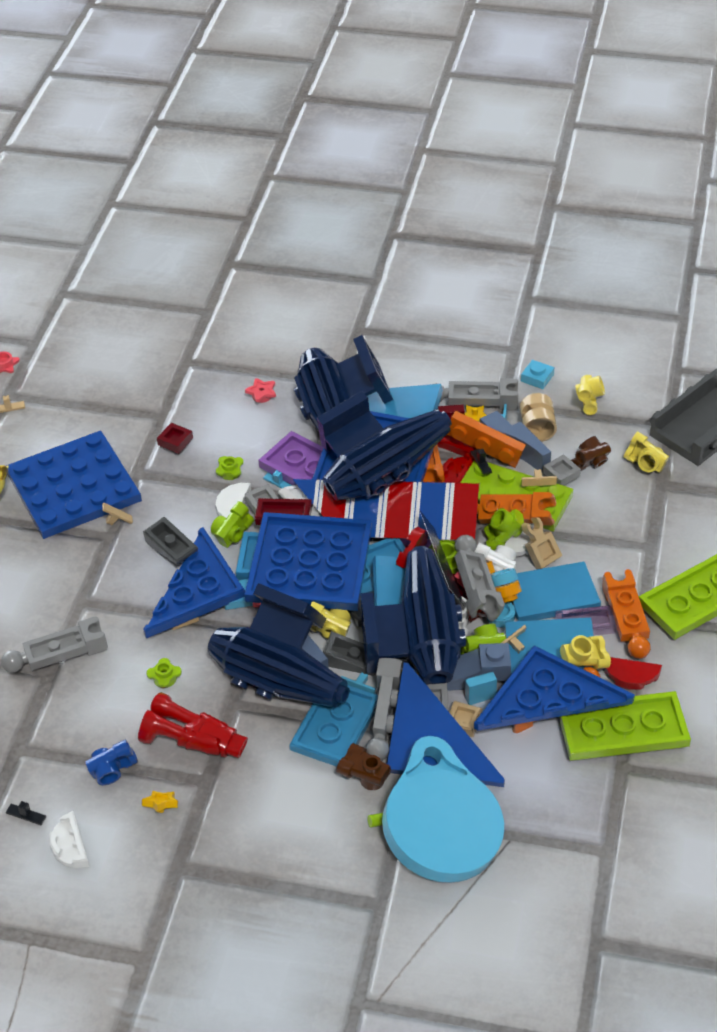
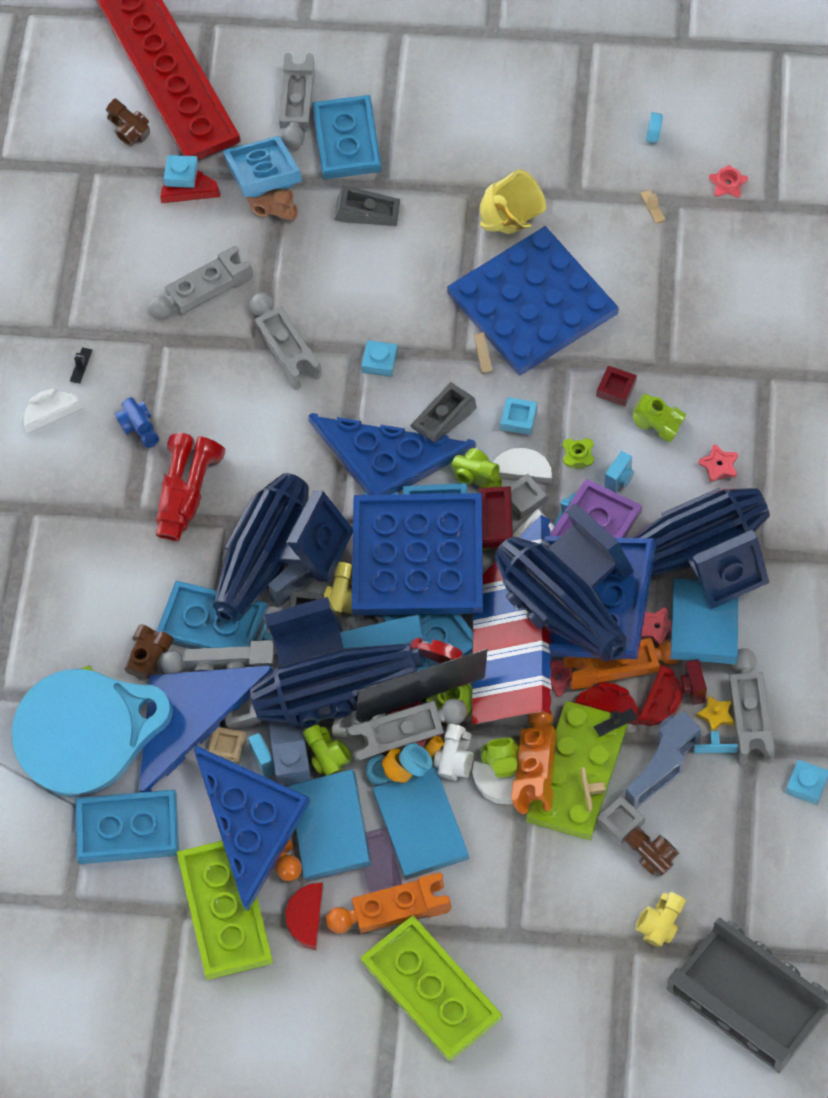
camera: 85 degrees right, 15 degrees up
(96, 585) = (379, 358): none -> medium azure plate
(160, 801) = (96, 475): yellow piece -> none
(167, 678) = (260, 454): lime plate -> none
(185, 497) = (518, 416): none -> medium azure plate
(210, 415) = (654, 413): none -> lime plate
(256, 441) = (619, 473): none -> medium azure plate
(484, 437) = (648, 720): orange plate -> none
(514, 642) = (323, 781): tan piece -> none
(536, 799) = (127, 826): none -> dark azure tile
(538, 415) = (708, 782): tan wheel -> none
(542, 546) = (479, 801): tan plate -> none
(586, 652) = (314, 864): light yellow plate -> none
(588, 390) = (772, 842): light yellow plate -> none

